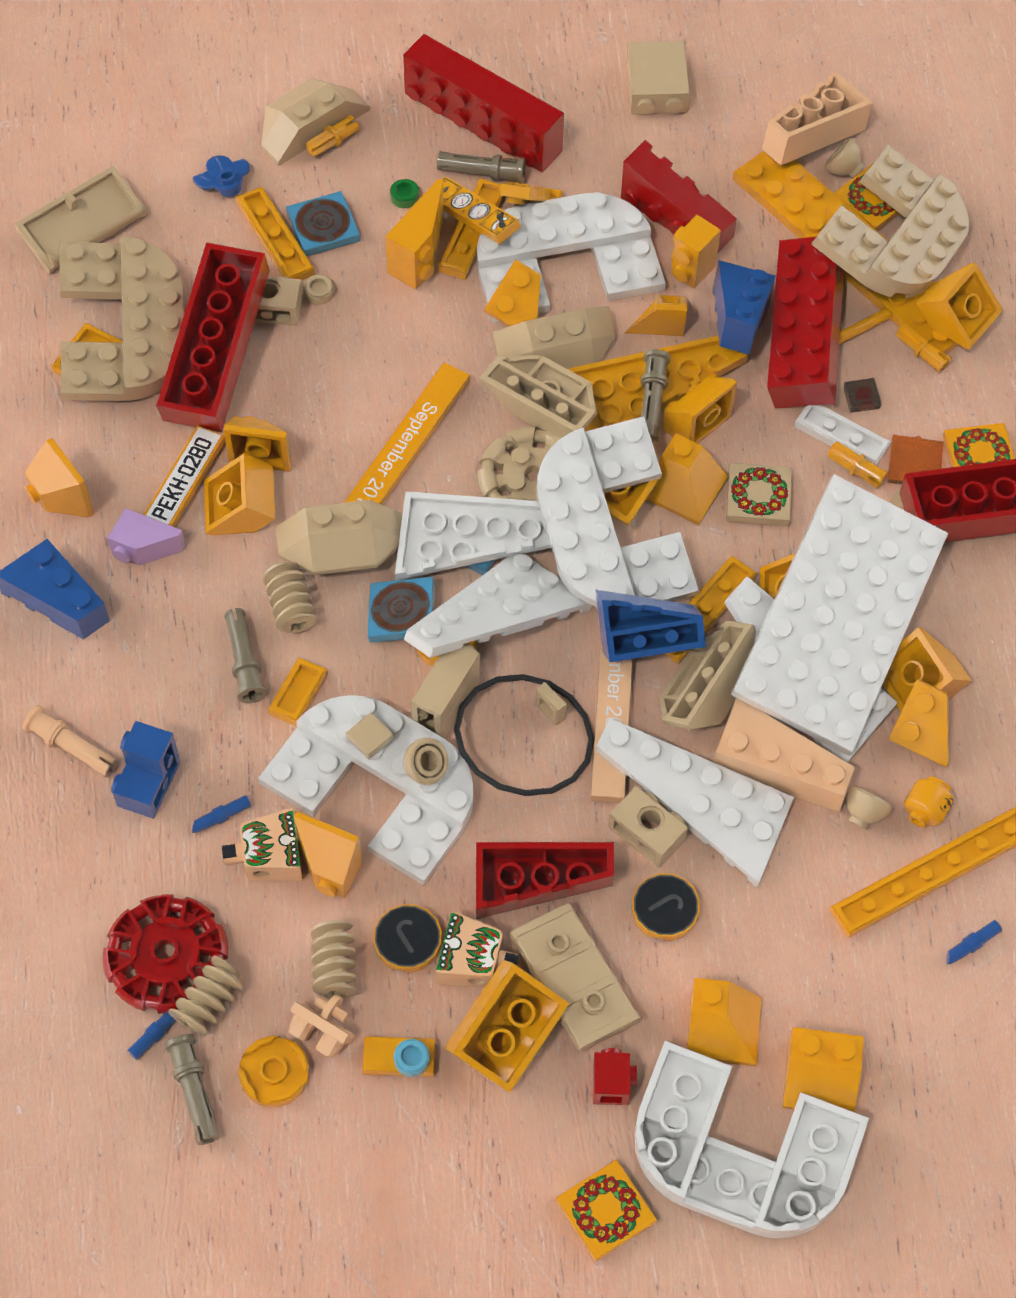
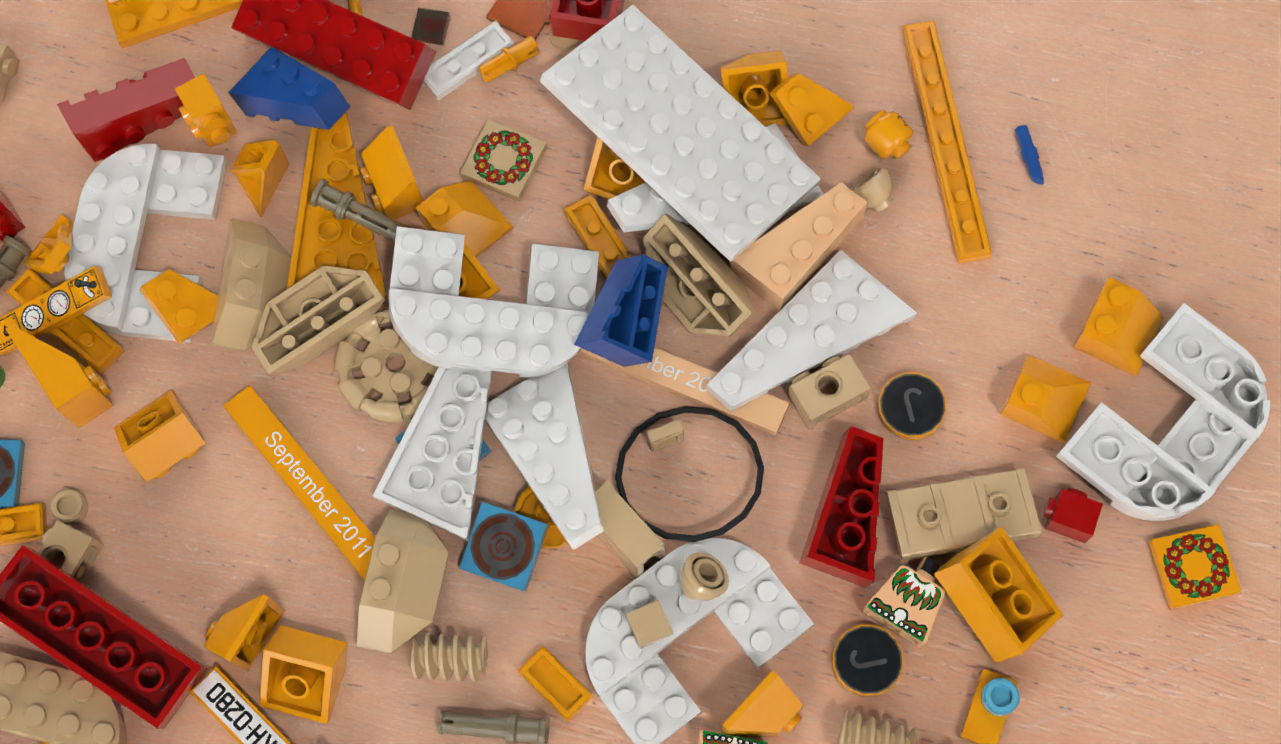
camera: 65 degrees left, 10 degrees up
(398, 326) = (159, 437): none -> light orange slope

